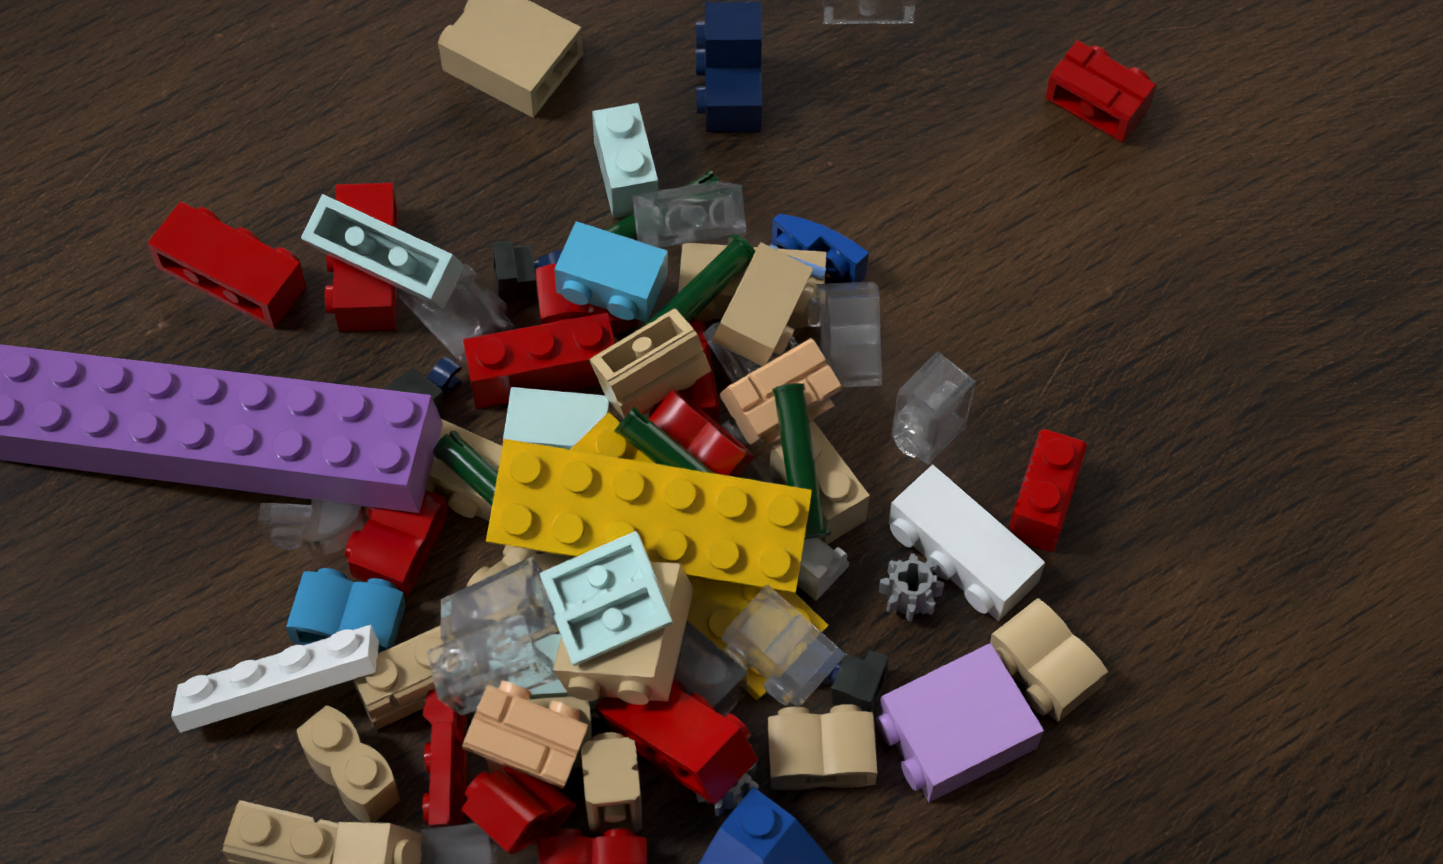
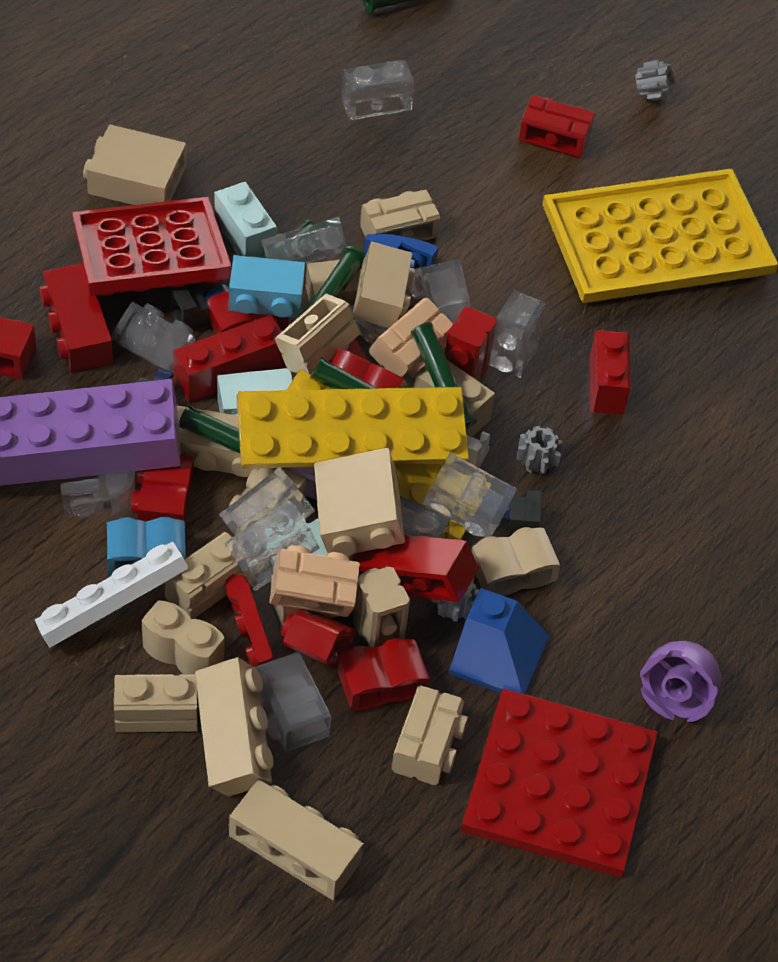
camera: 20 degrees left, 10 degrees down
(383, 251) = (100, 299): light aqua brick -> none
(487, 172) = (150, 246): none -> red plate
(606, 598) = (344, 479): light aqua slope -> none
(731, 62) = (299, 150): dark blue brick -> none
(837, 194) = (404, 215): none -> tan brick
(860, 416) = (471, 342): none -> red brick
(958, 723) = (602, 526): lavender brick -> none
(965, 543) = (574, 416): white brick -> none
(1048, 660) = (647, 476): tan brick -> none
(1191, 289) = (658, 235): none -> yellow plate
(1264, 45) = (655, 80): none -> light grey gear

